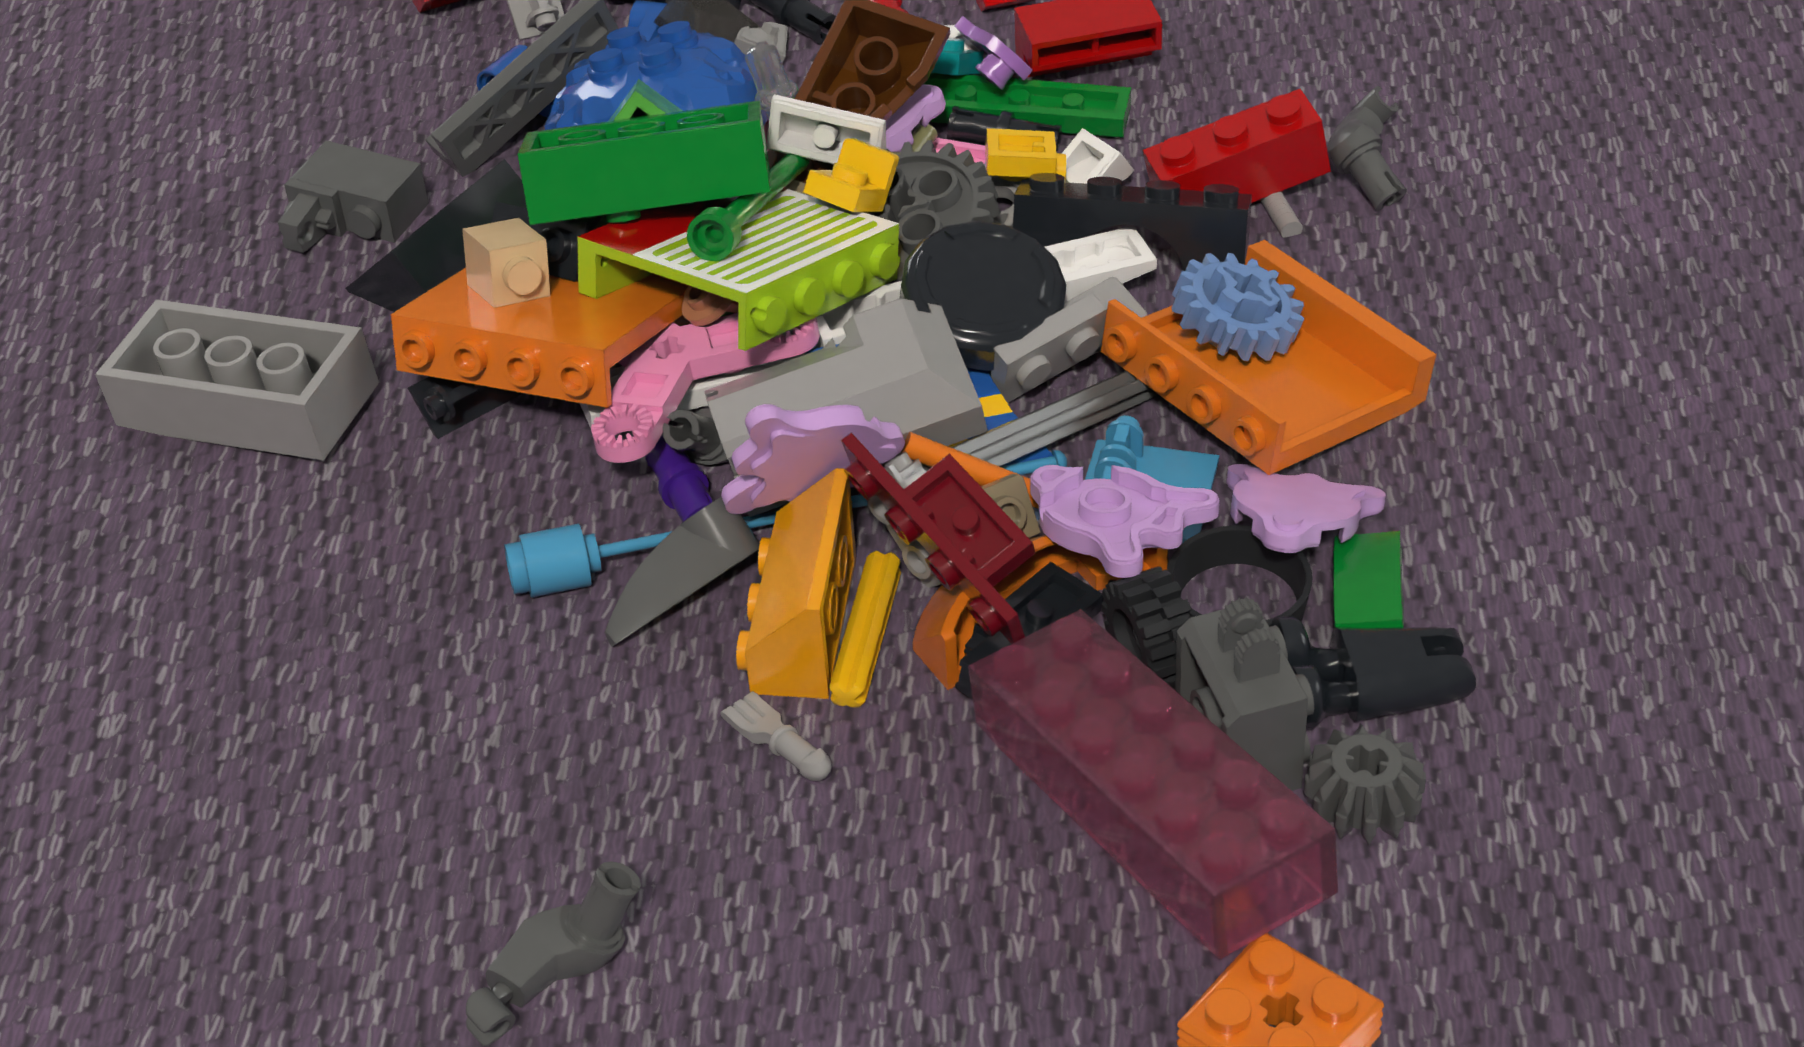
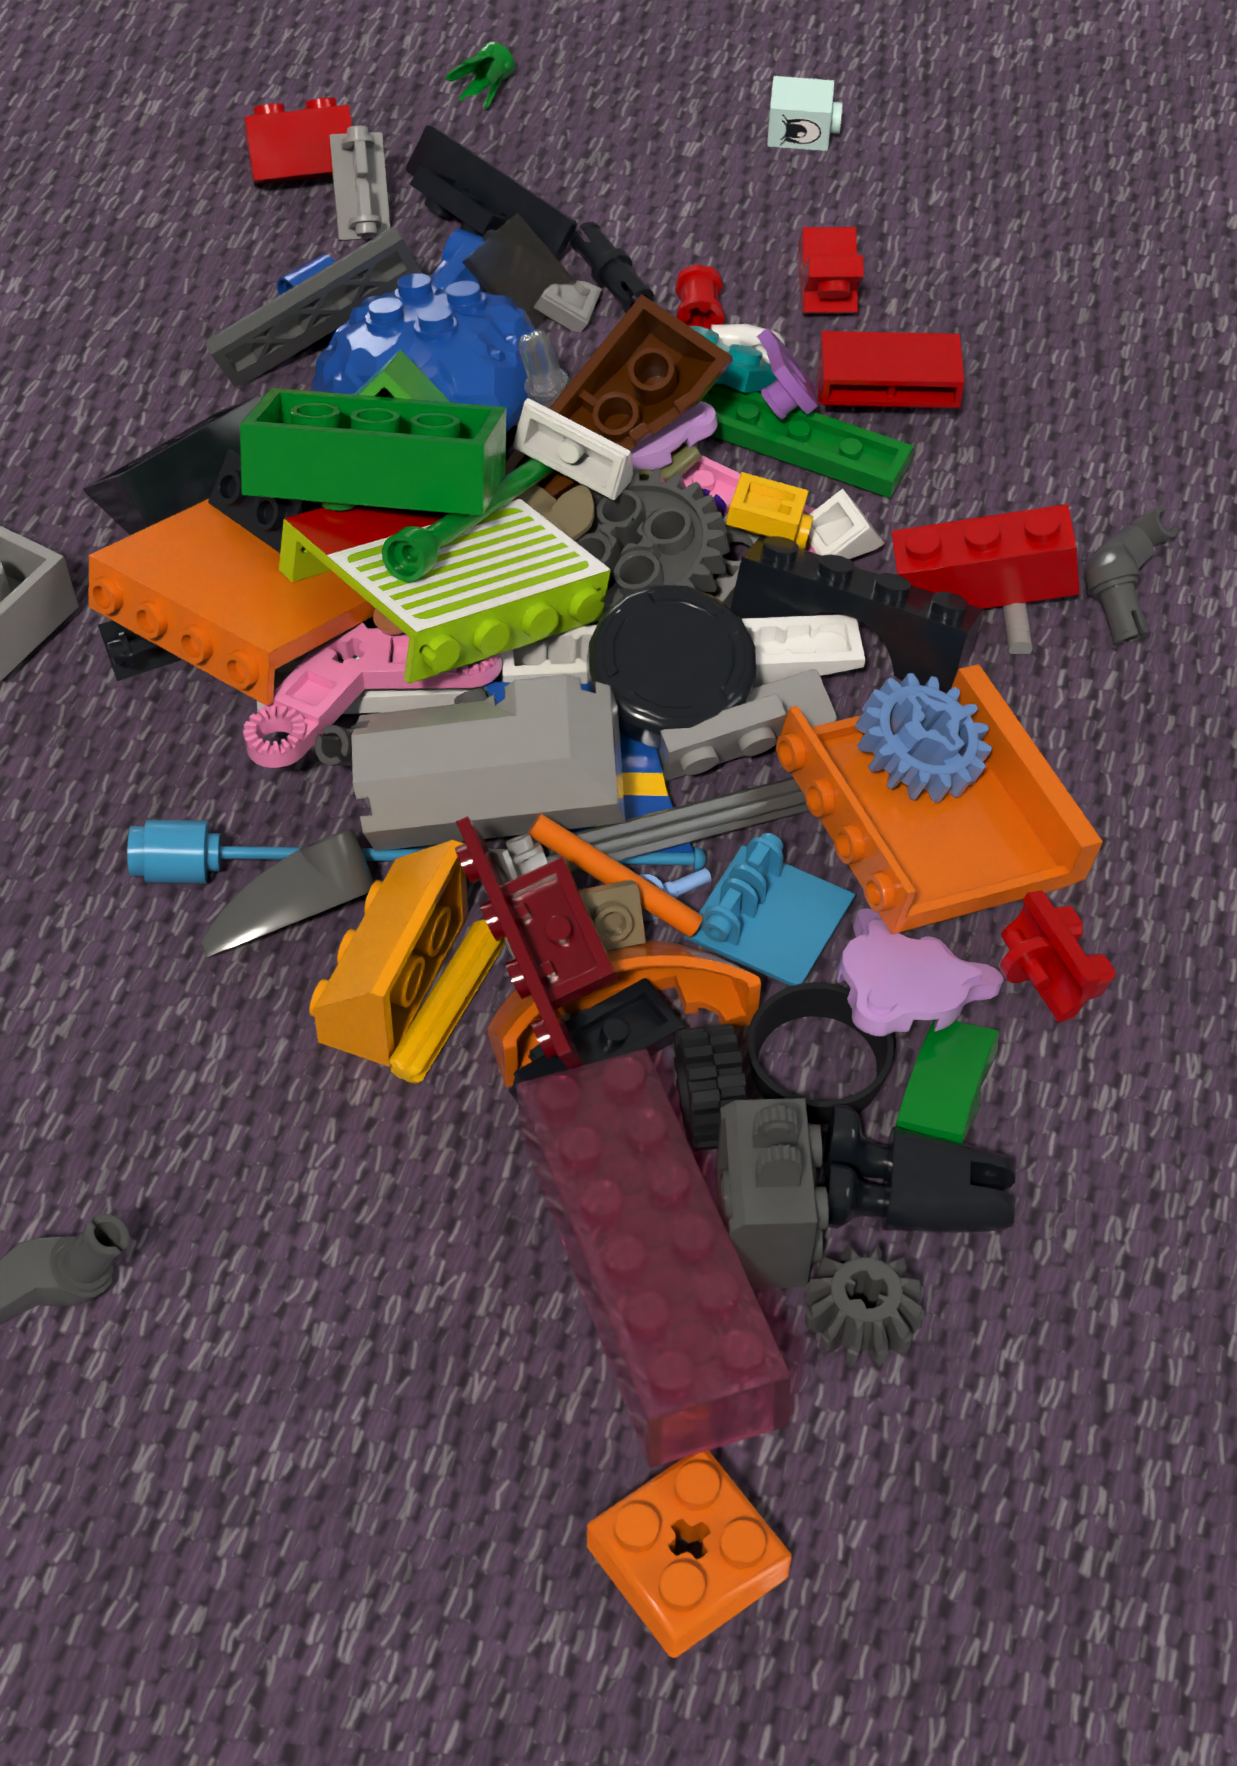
camera: 10 degrees right, 10 degrees up
(352, 192) = (117, 385): dark grey hinge -> none
(506, 262) = (214, 524): tan brick -> none
(680, 483) = (324, 797): dark purple pin -> none
(763, 724) = (318, 1083): light grey piece -> none
(797, 449) = (416, 816): lavender tile -> none
(857, 180) = (586, 511): yellow bracket -> none
(972, 125) = (770, 463): black pin -> none
(1117, 514) = (715, 953): lavender tile -> none
(1423, 462) = (1048, 954): none -> red hips

